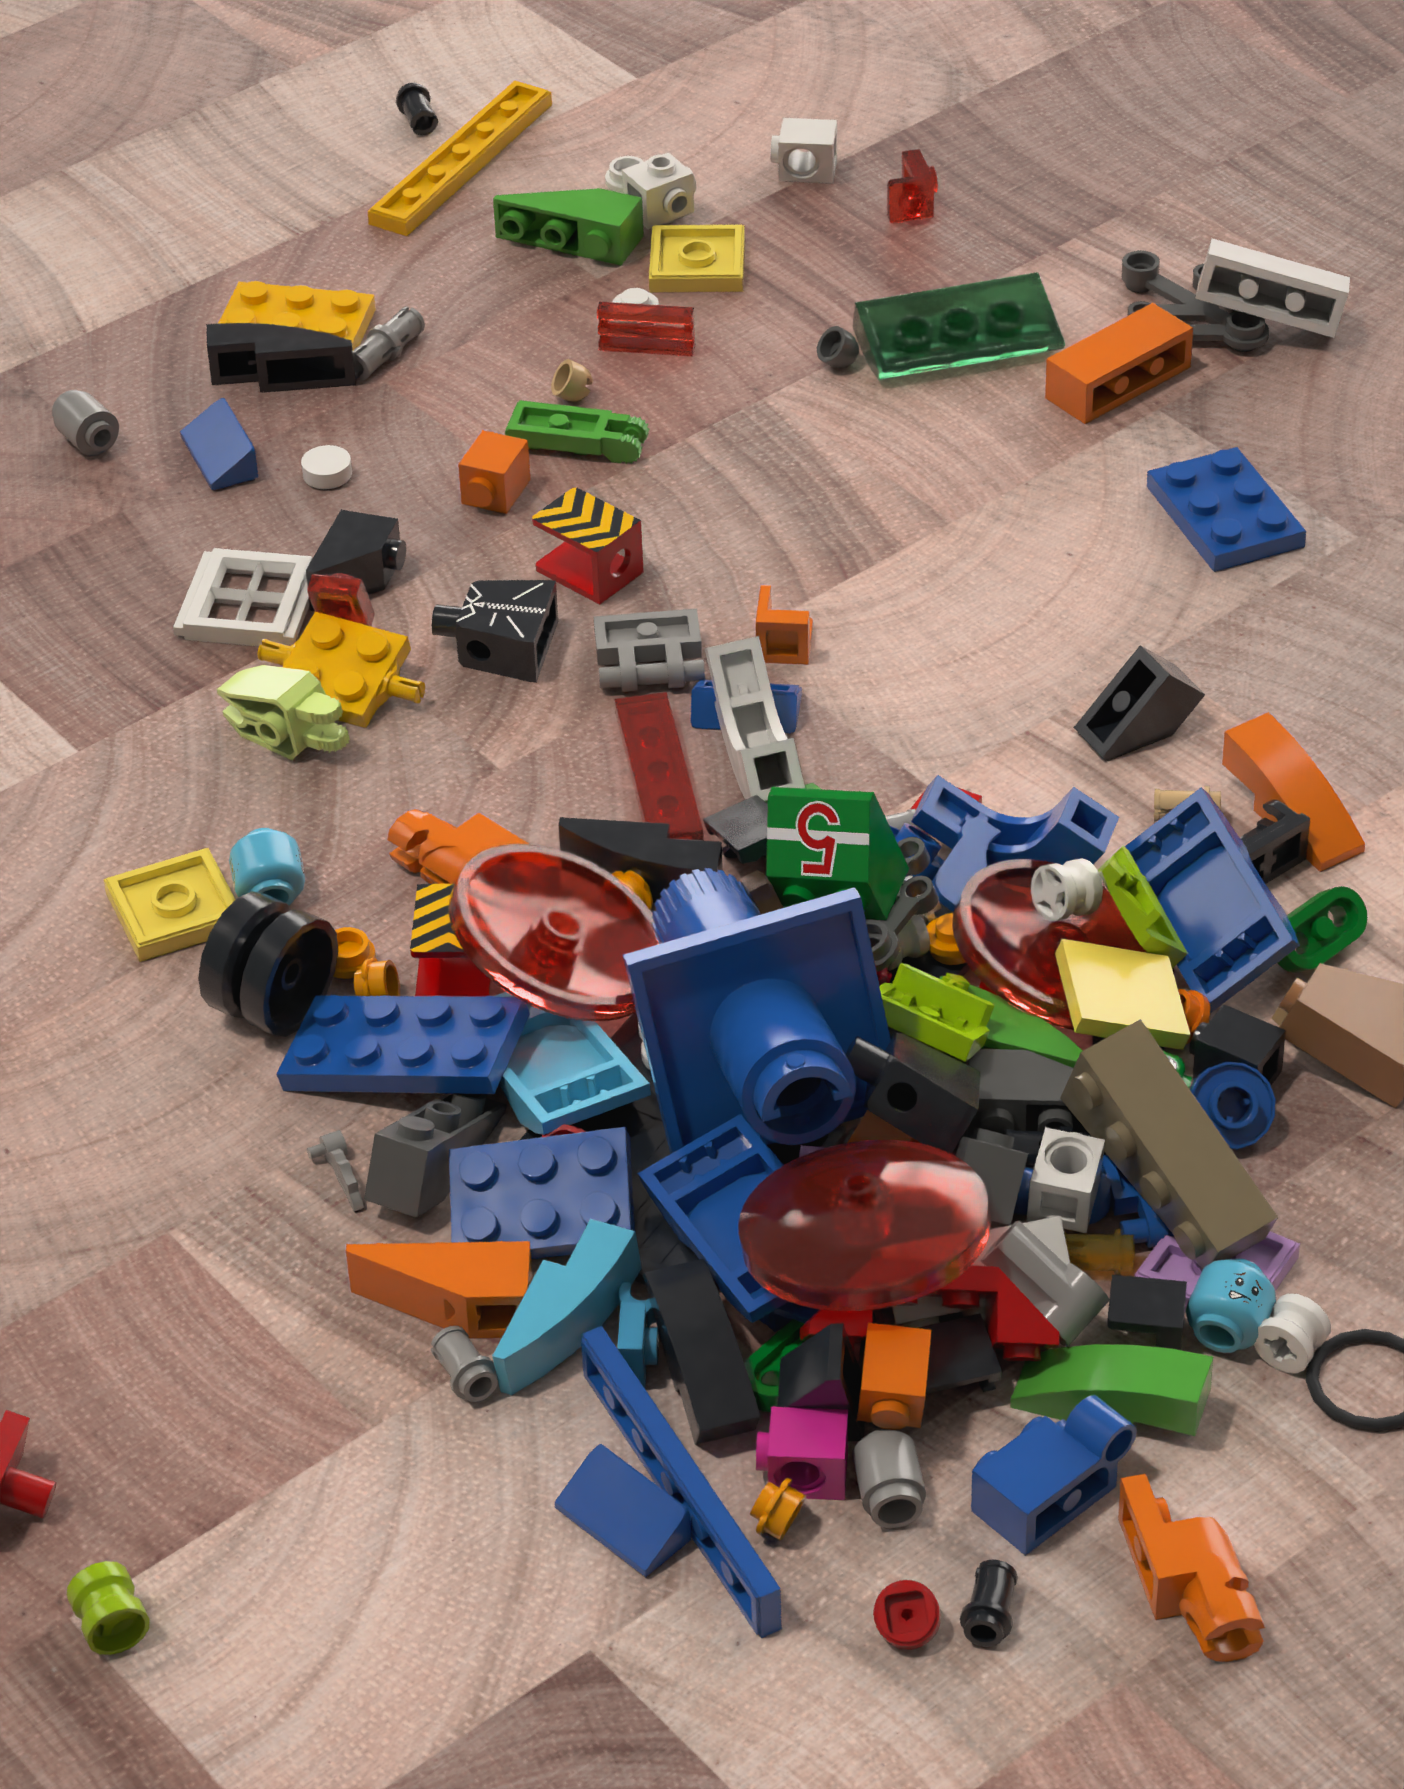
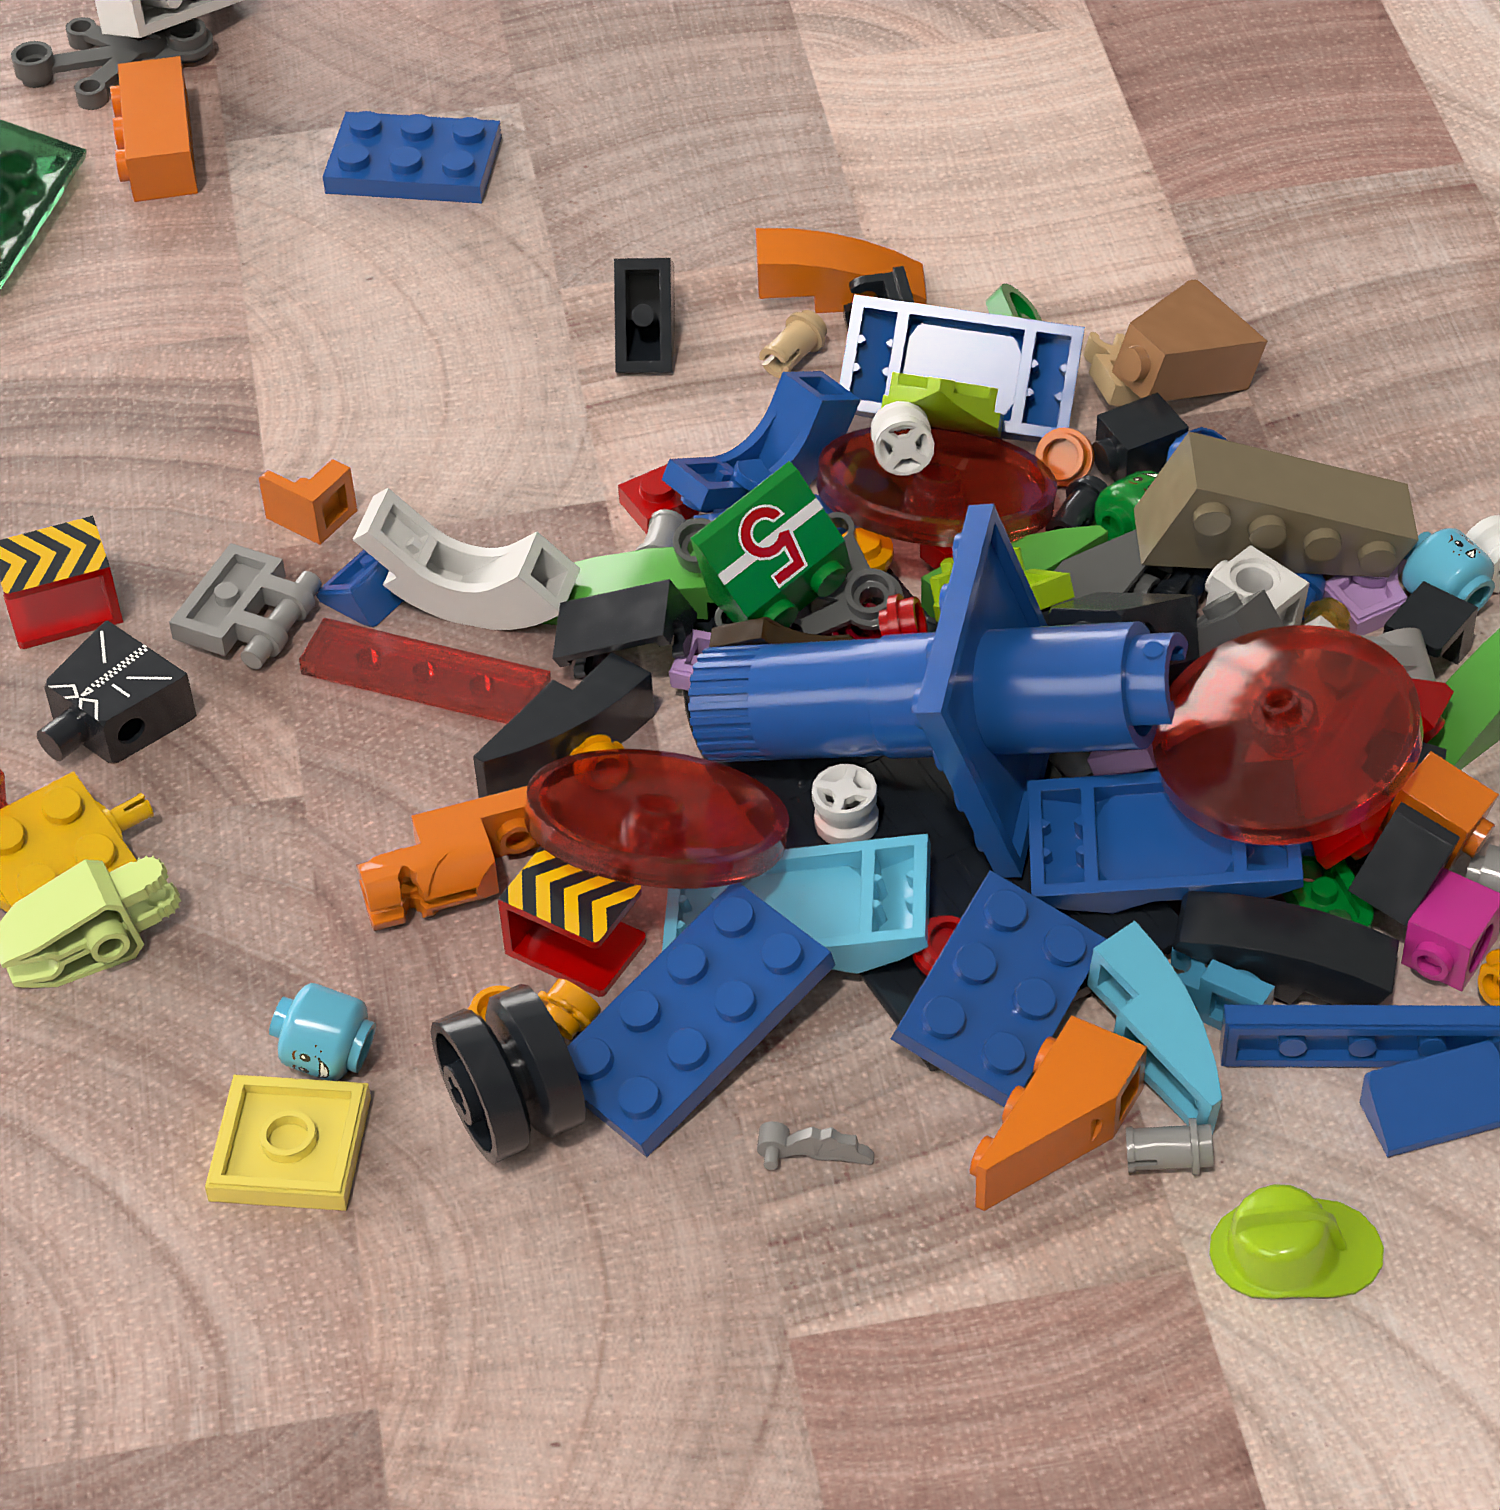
camera: 60 degrees left, 5 degrees up
(412, 1154) = (861, 1060): dark grey slope -> none
(424, 1480) = (1295, 1246): none -> lime piece
(1119, 986) = (1041, 470): light yellow tile -> none

